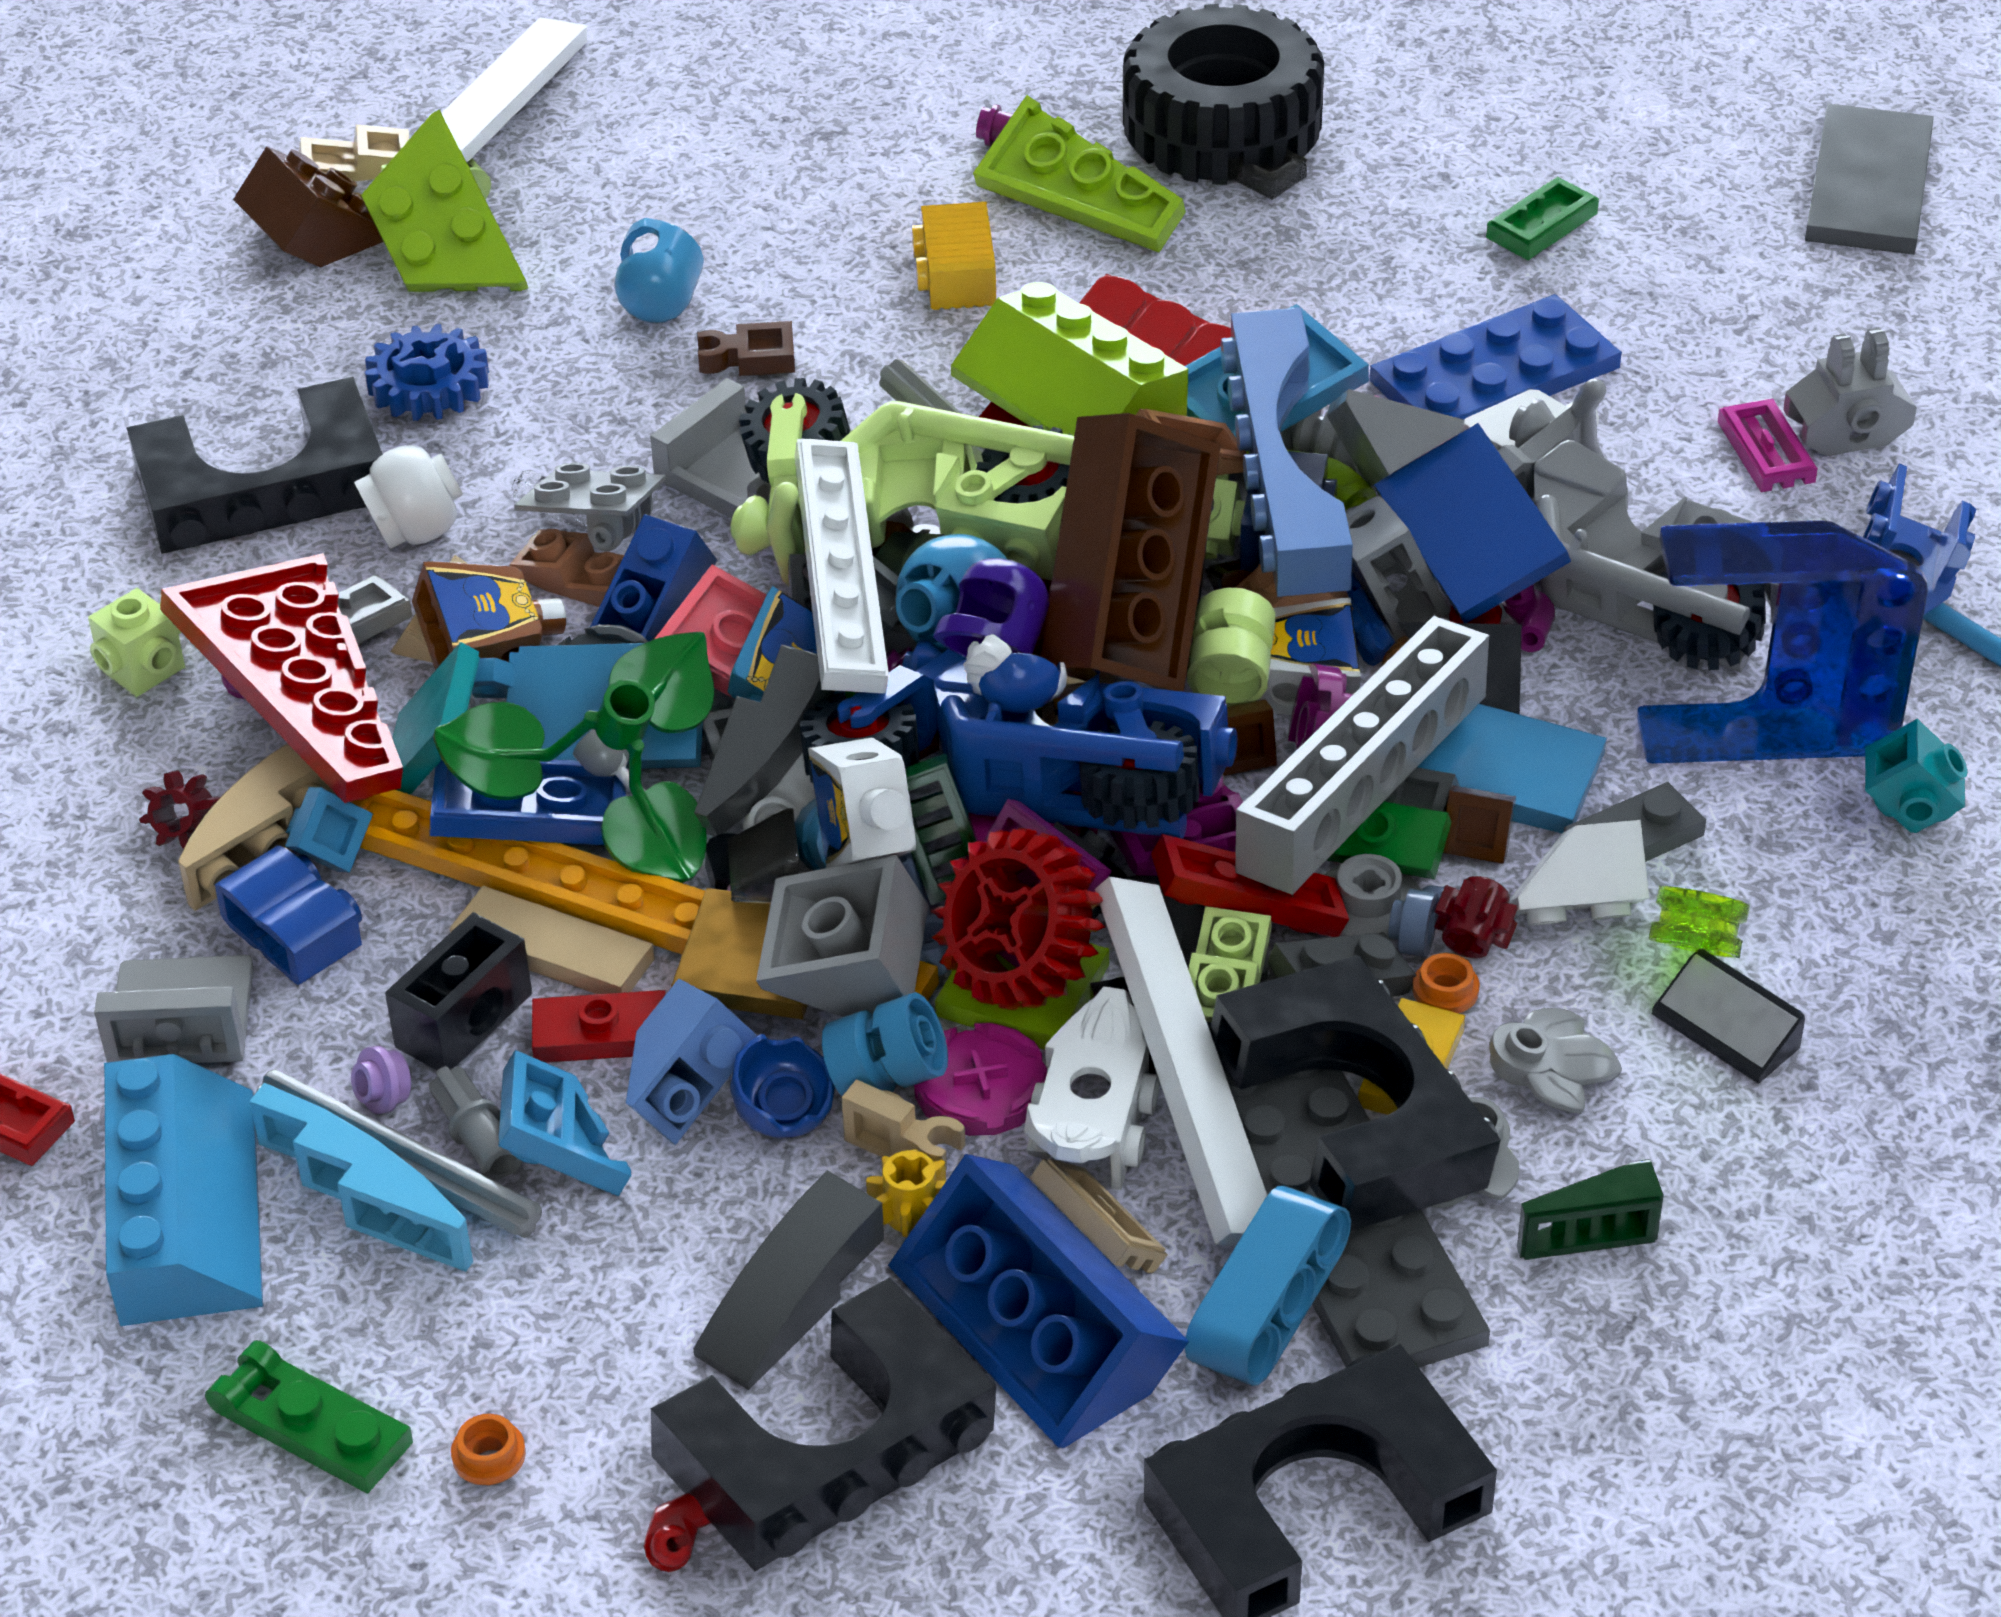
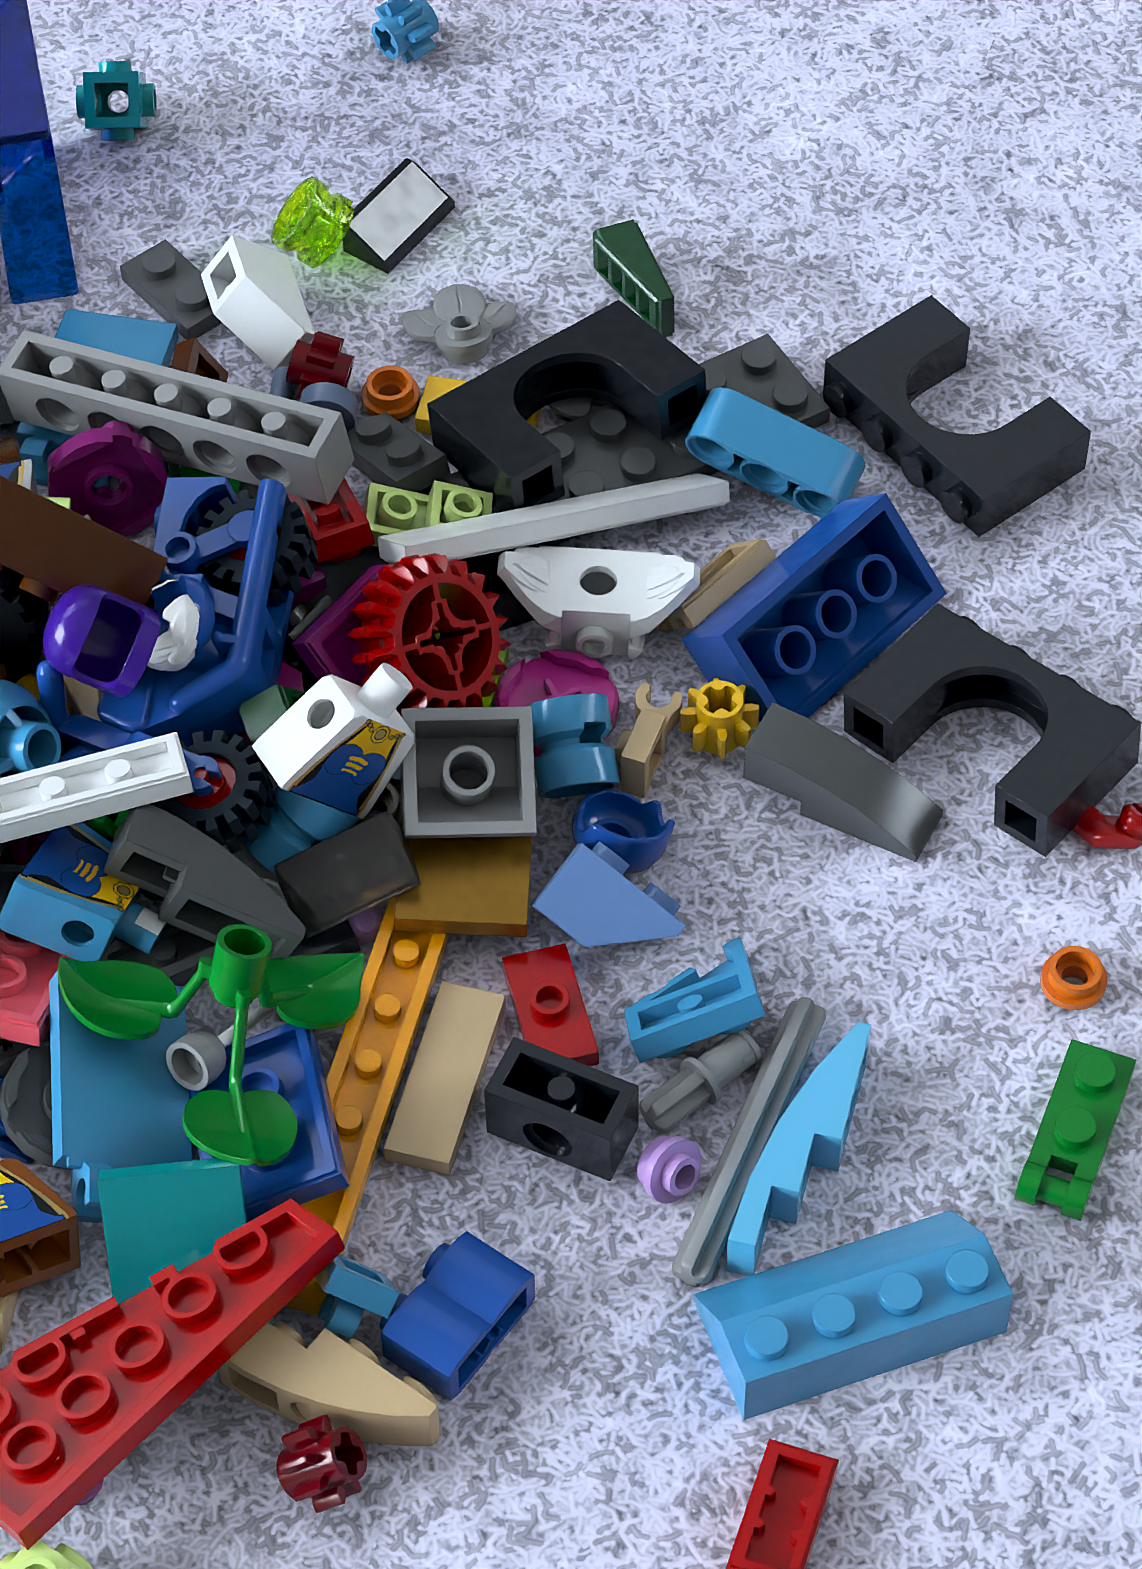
camera: 100 degrees left, 10 degrees up
(177, 1008) = (608, 1384): light grey bracket -> none

